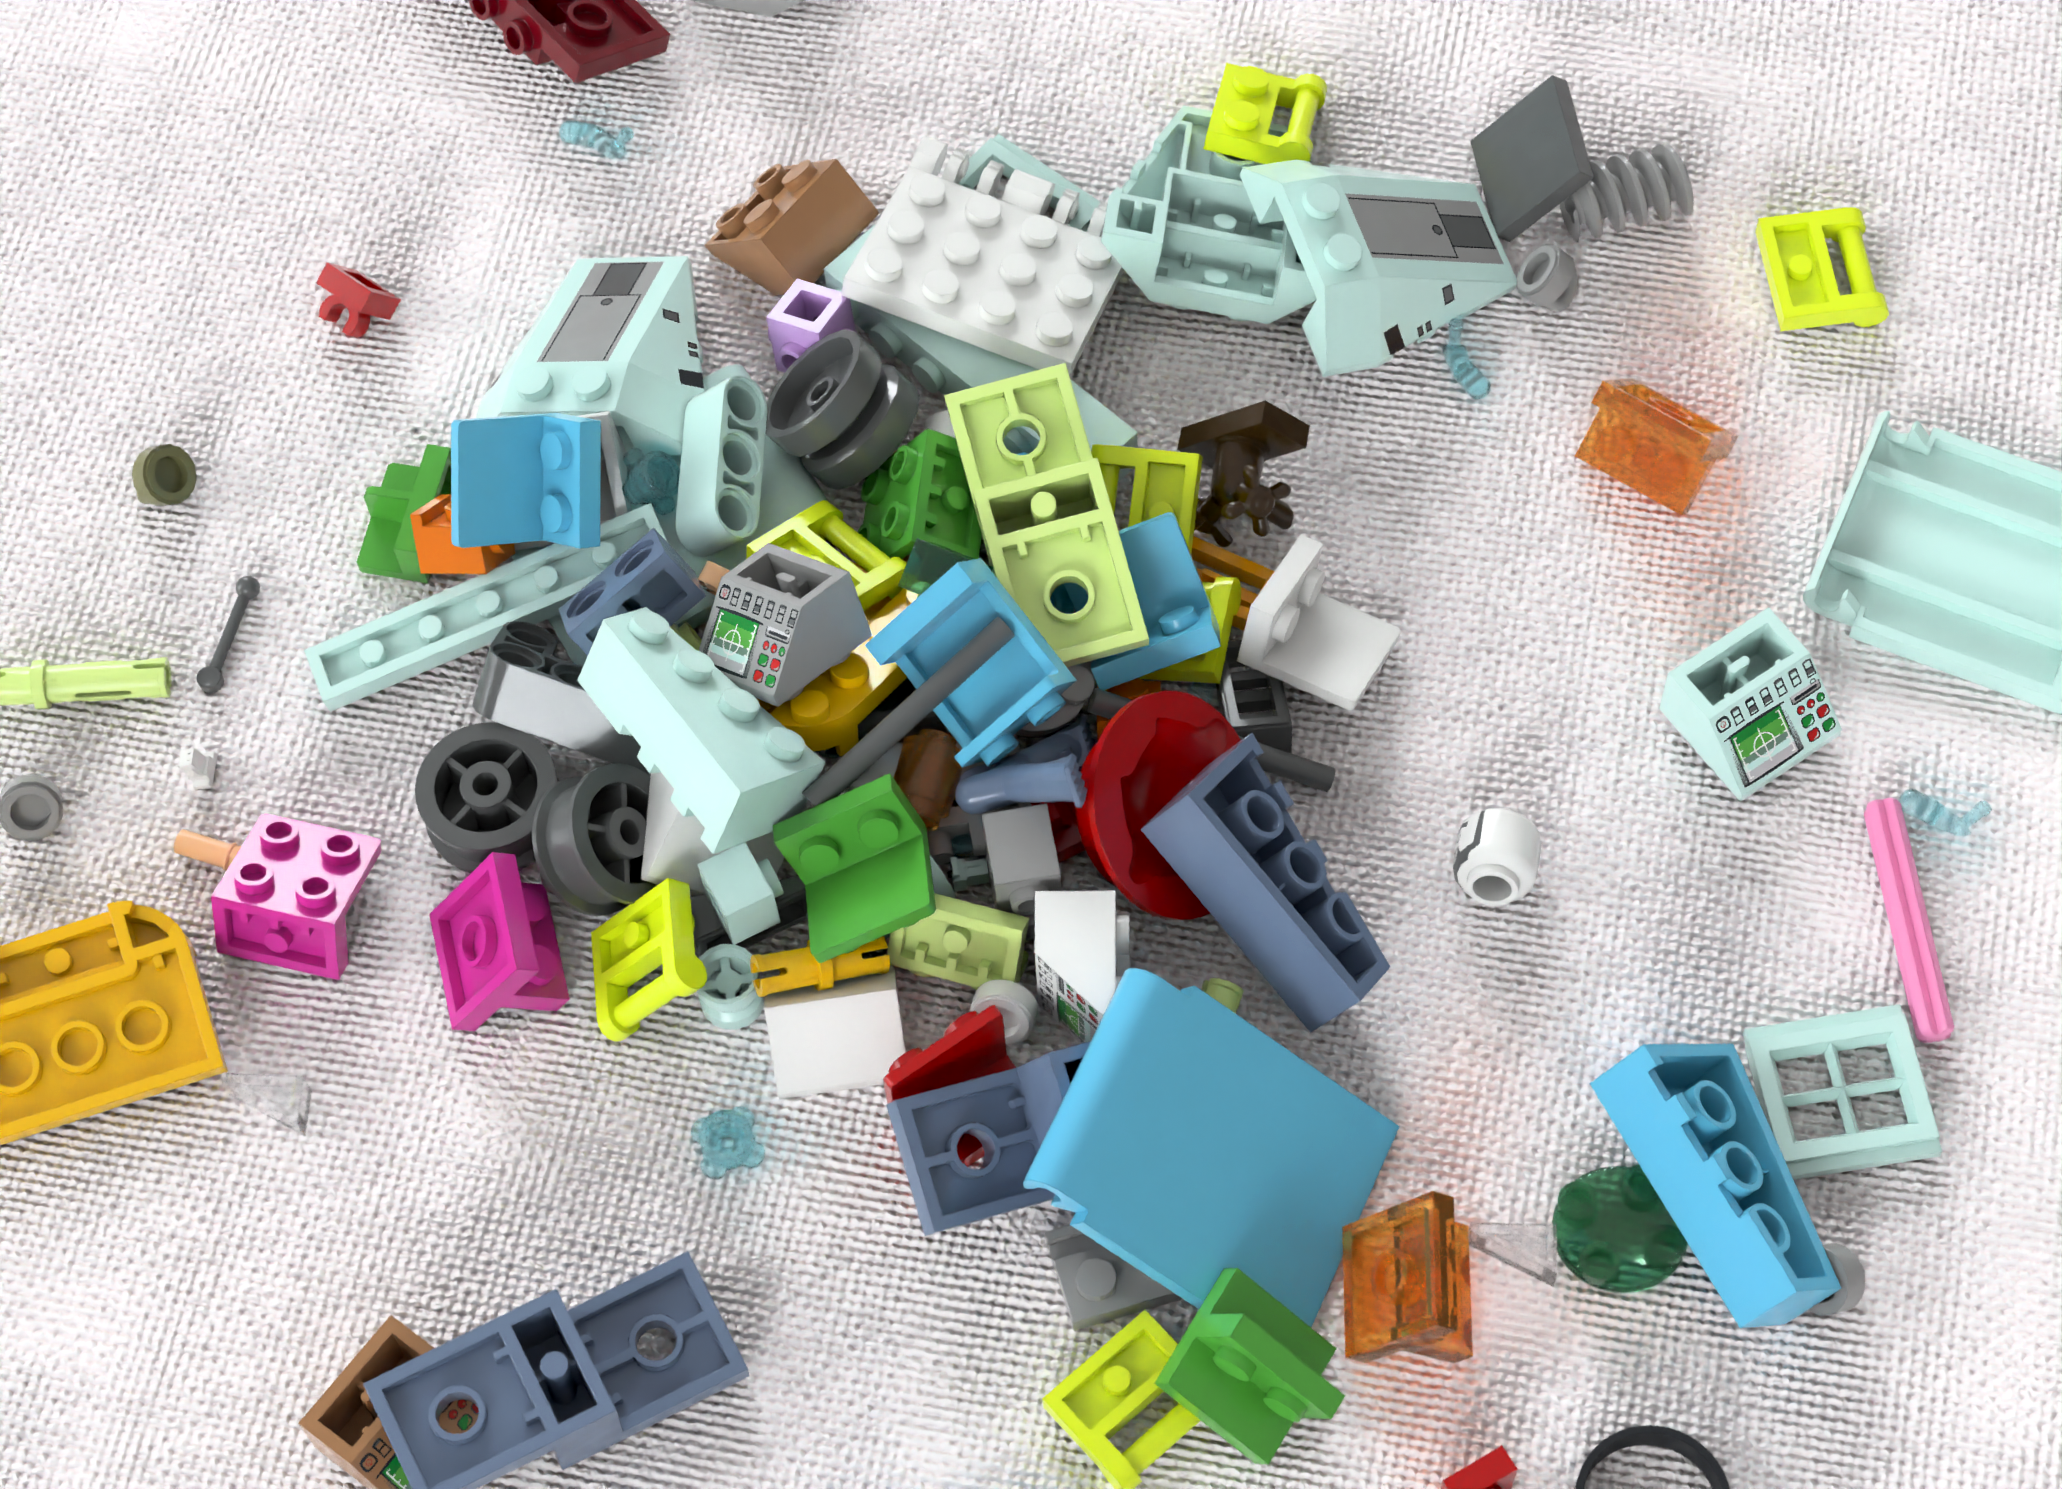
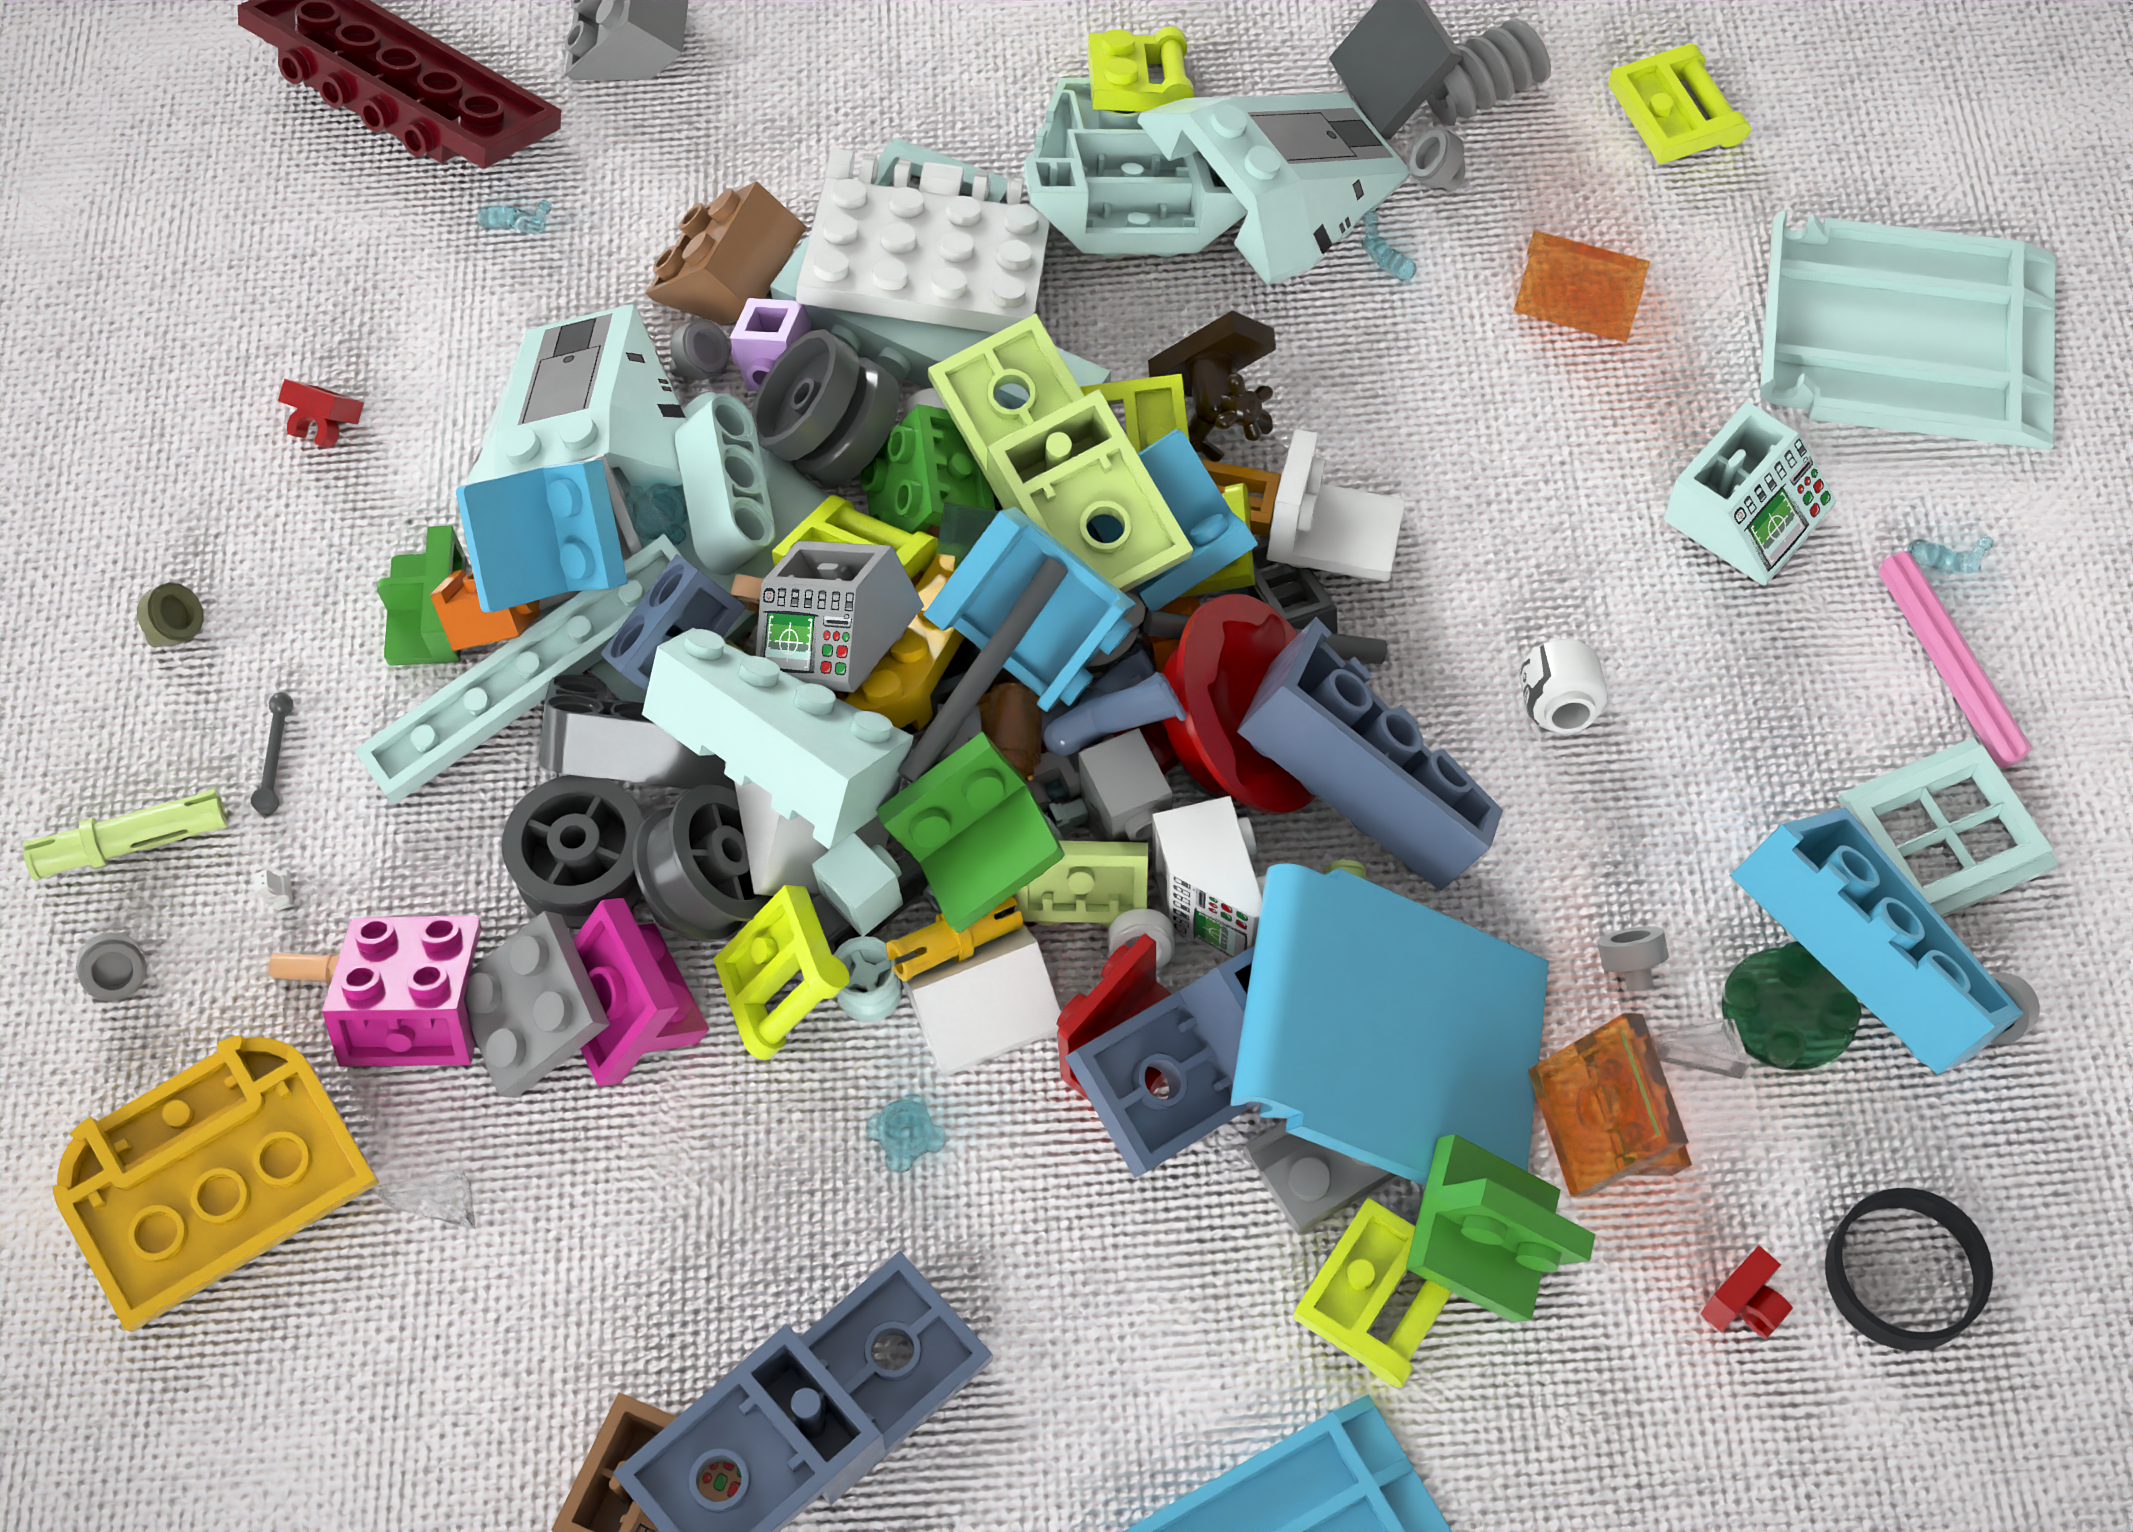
camera: 15 degrees left, 0 degrees up
(407, 936) = (532, 1005): none -> light grey plate
(739, 318) = (698, 350): none -> light grey tile
(1481, 1138) = (1634, 953): none -> light grey tile

